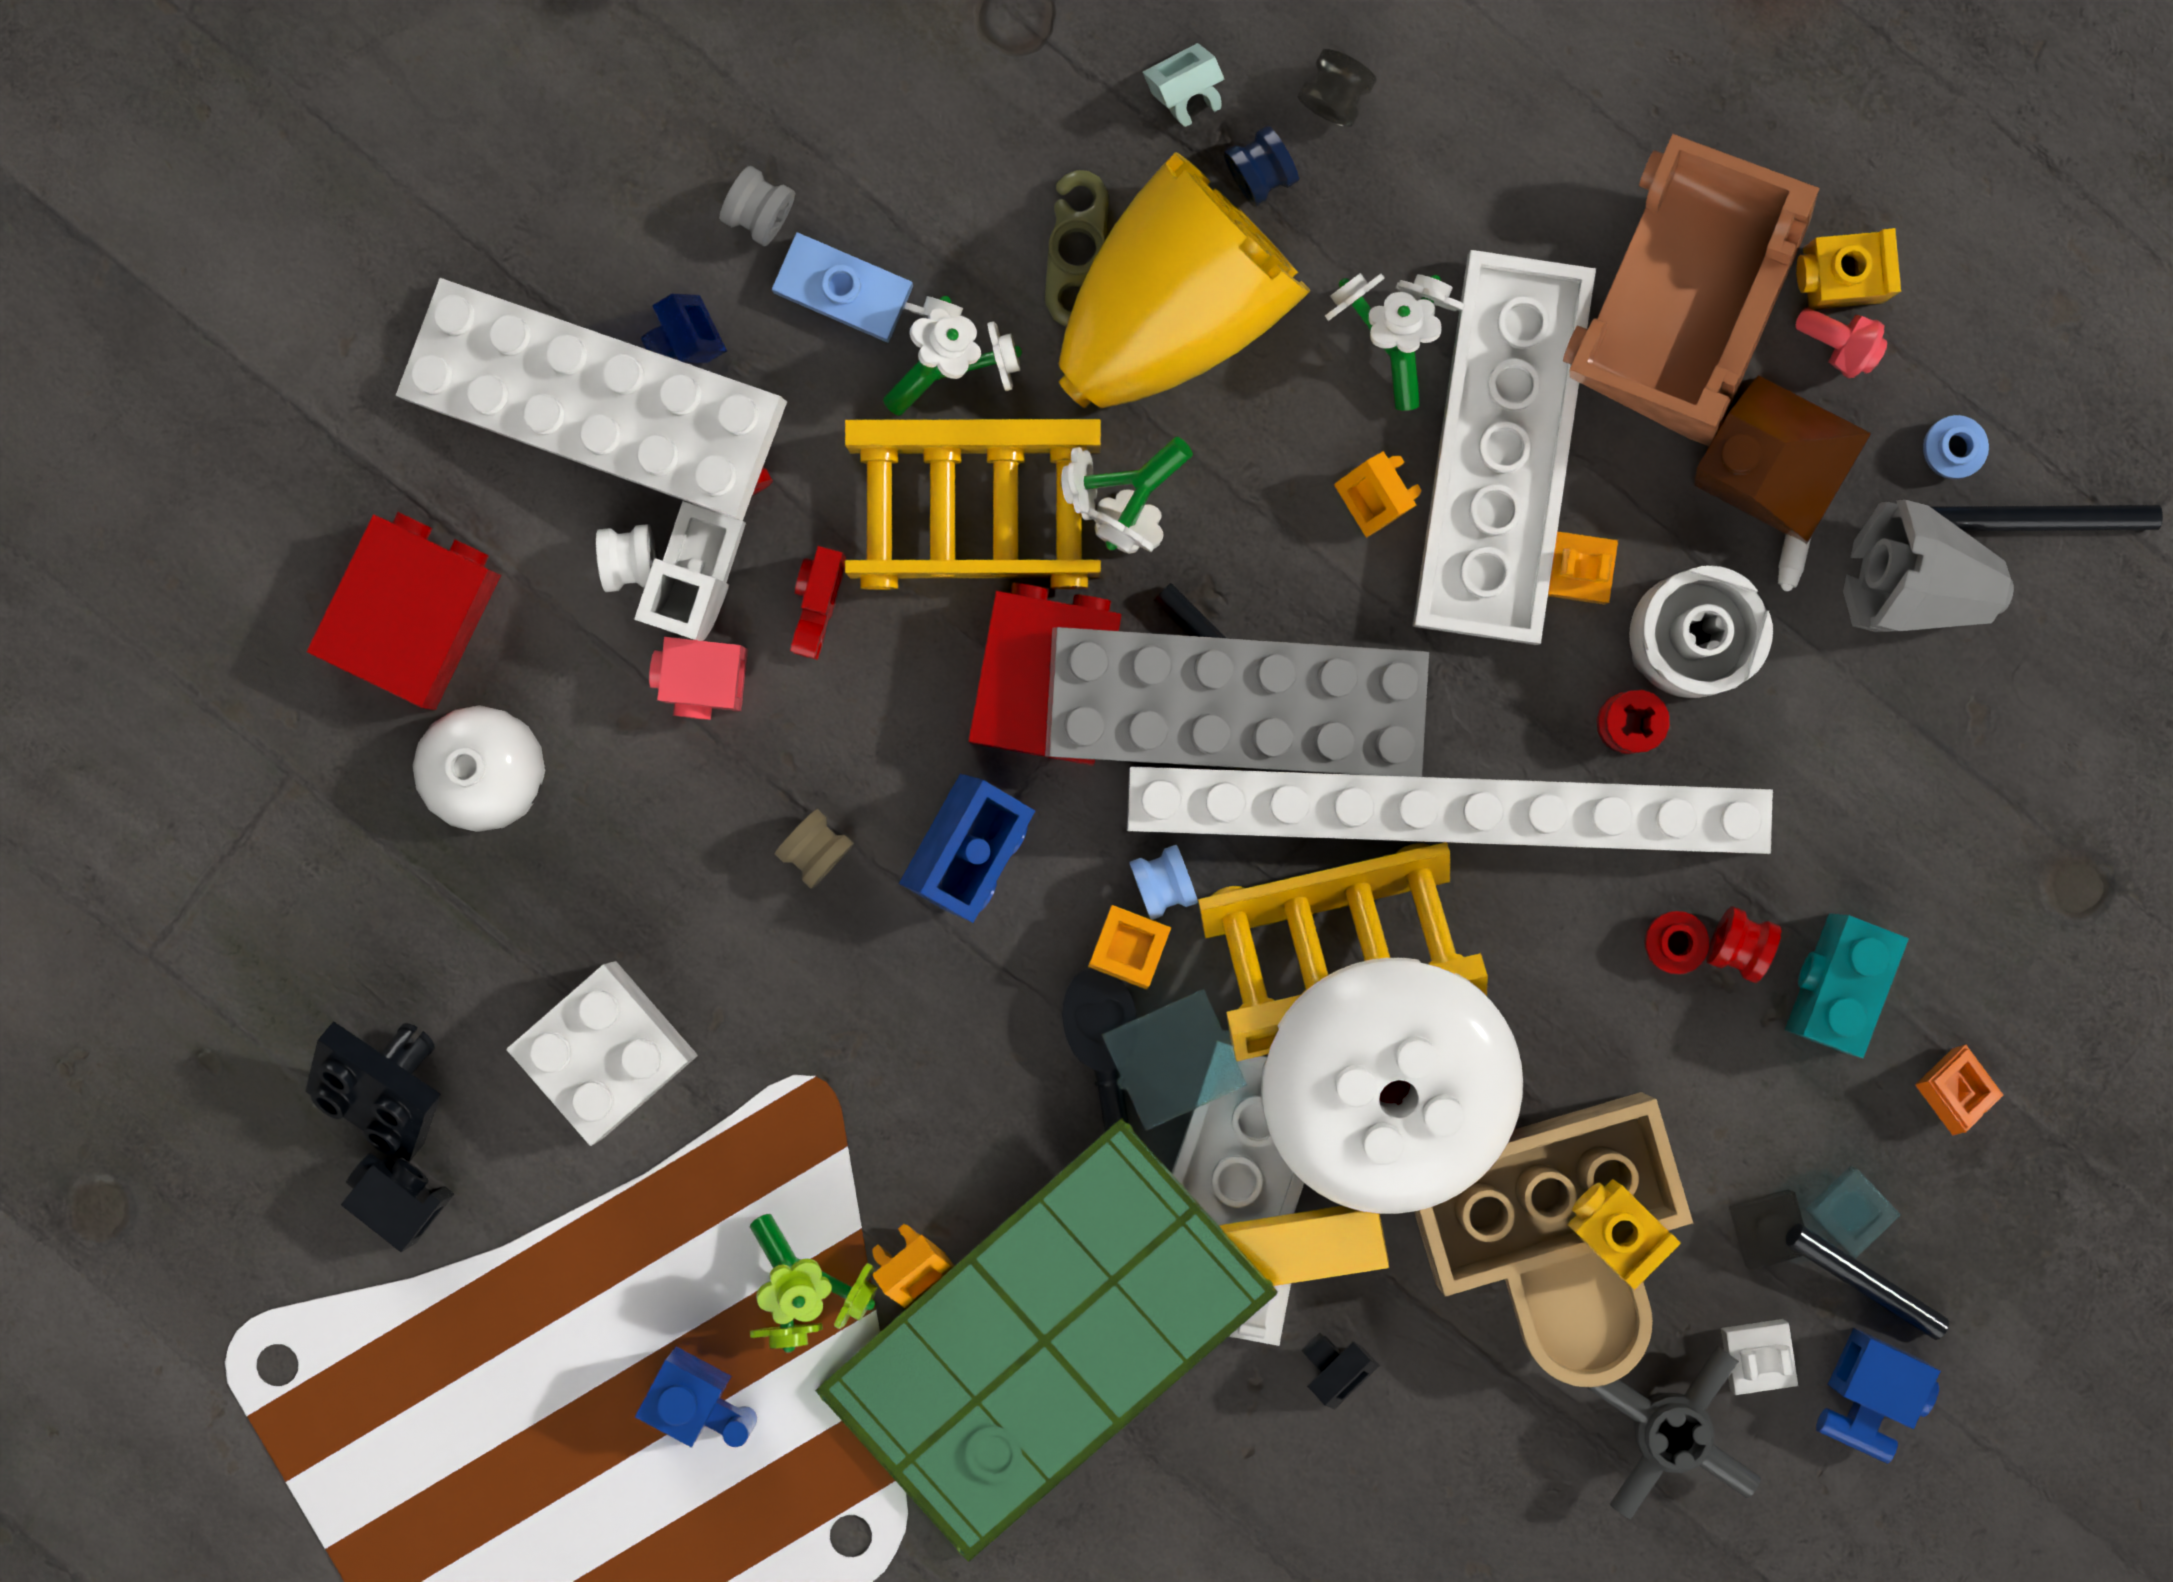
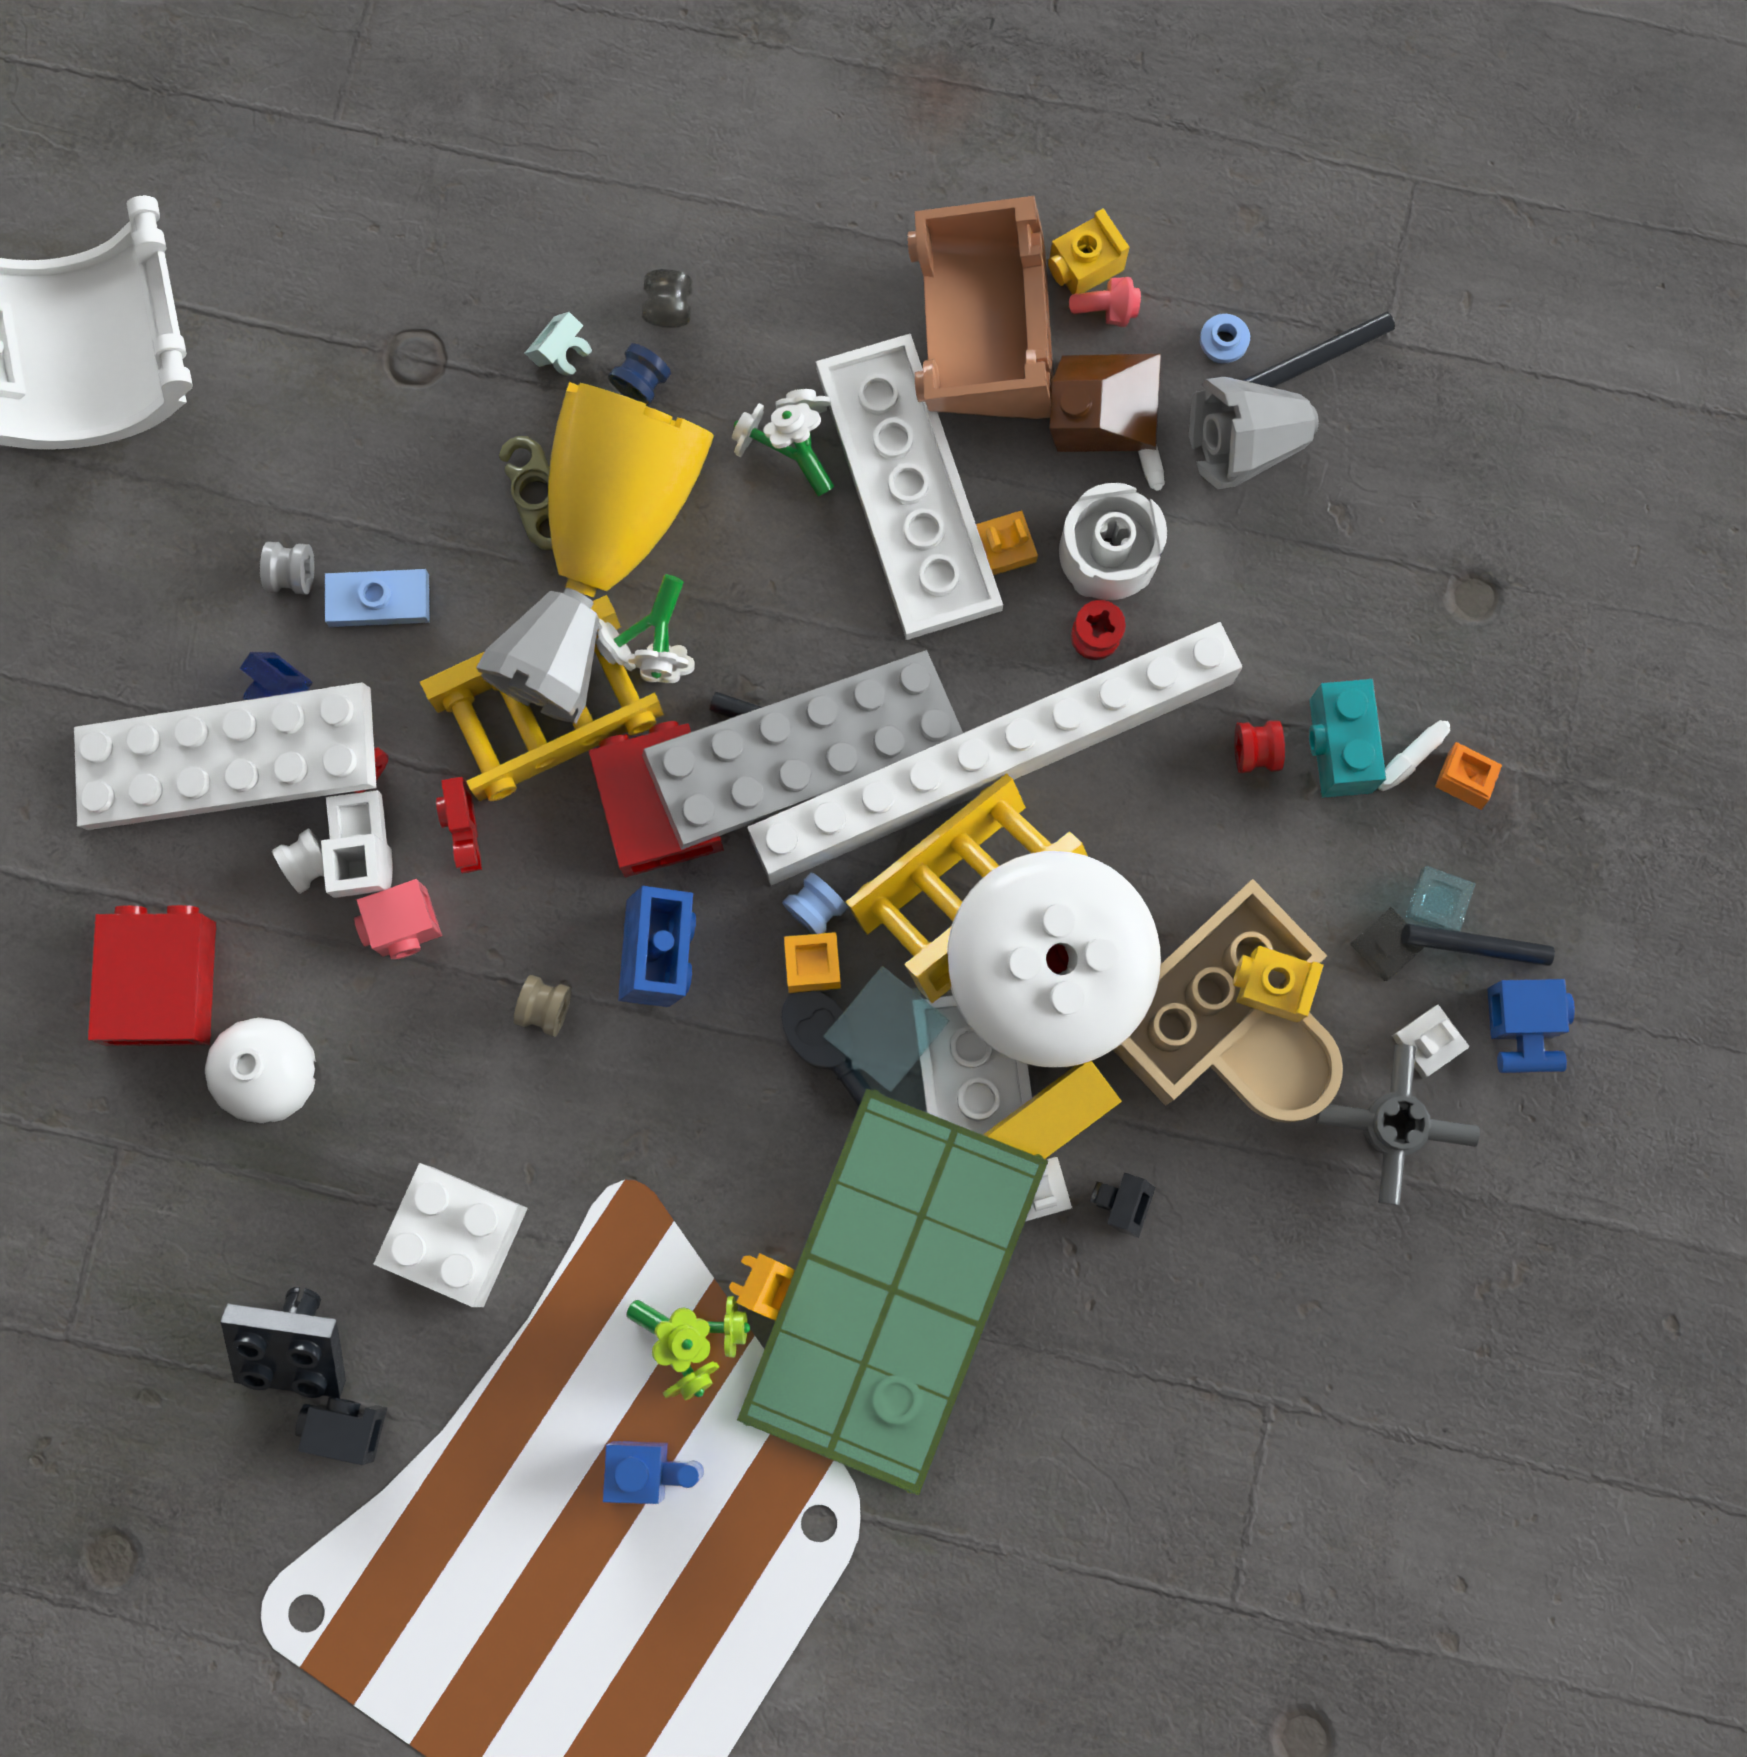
camera: 25 degrees left, 10 degrees down
(949, 352) = (470, 590): white plant -> none
(1002, 466) = (547, 655): none -> light grey cone
(1376, 493) = (832, 557): light orange tile -> none
(1657, 942) = (1208, 784): red plate -> none
(1896, 1039) = (1406, 762): none -> white piece

